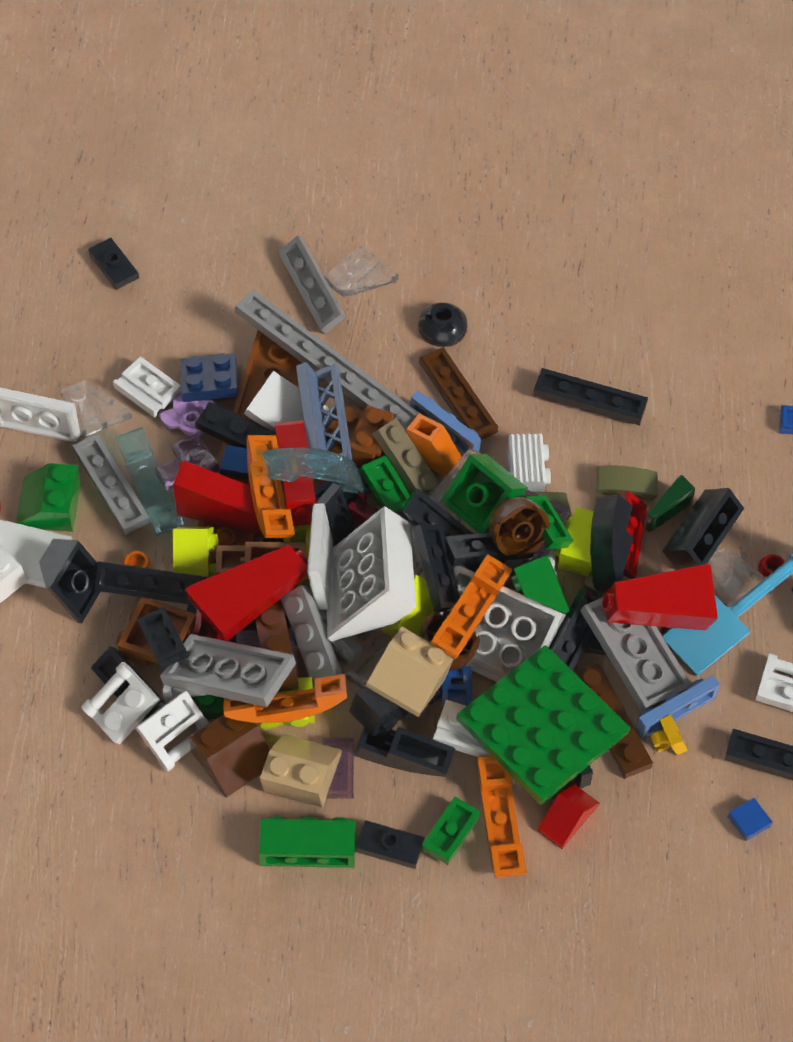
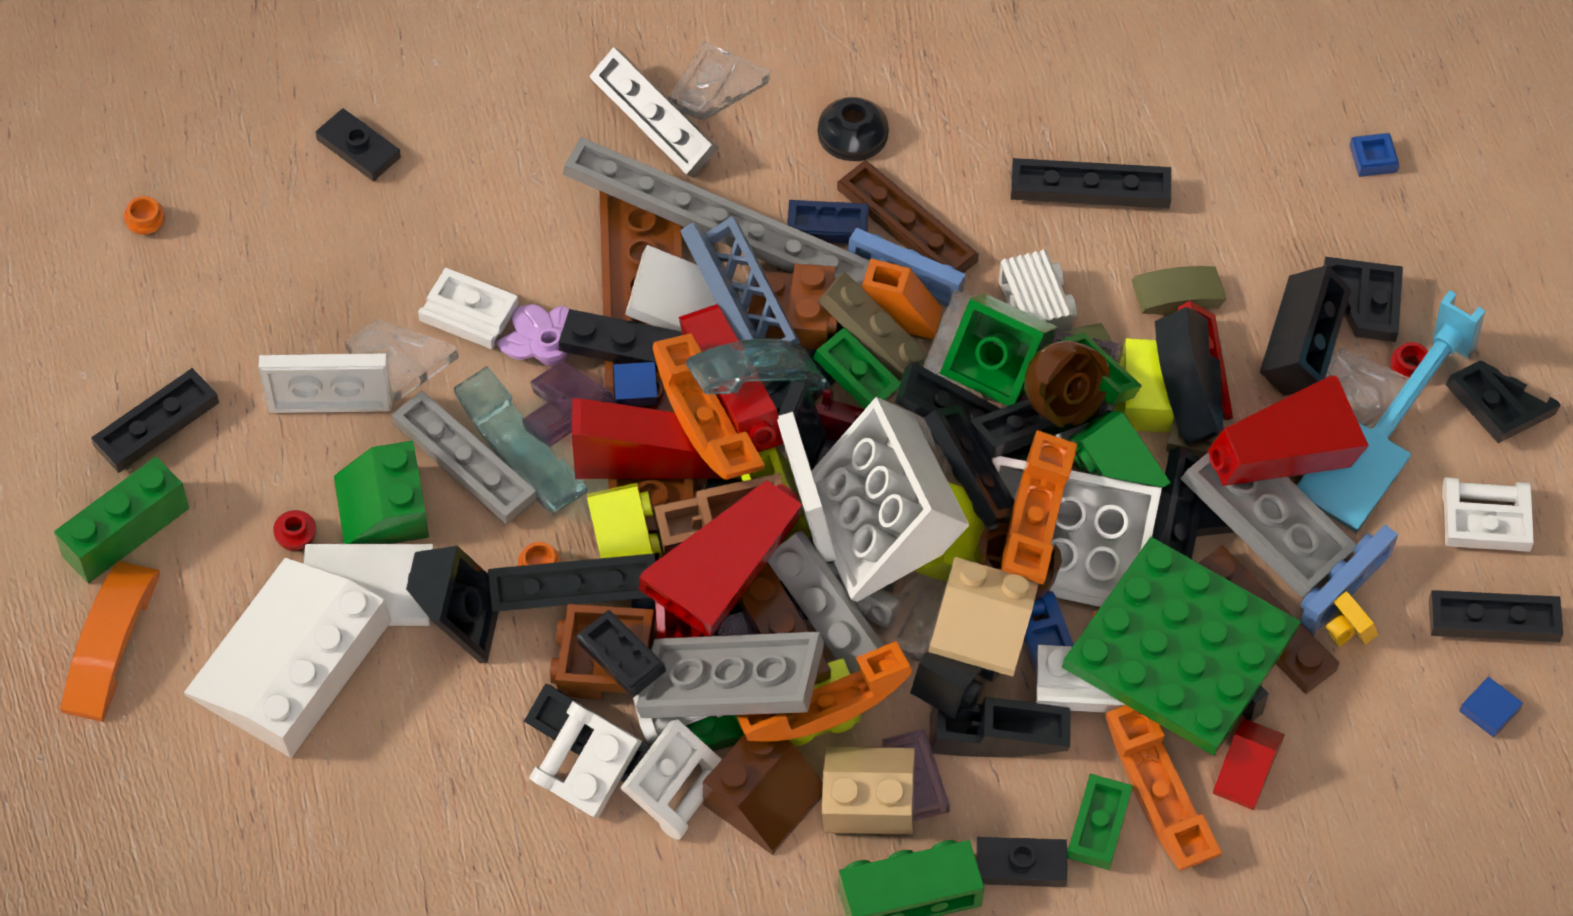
camera: 15 degrees left, 0 degrees up
(208, 377) = (552, 275): dark blue plate -> none
(404, 381) = (828, 220): none -> dark blue plate
(674, 501) = (1251, 302): dark green slope -> none
(759, 518) = (1373, 299): none -> black wing

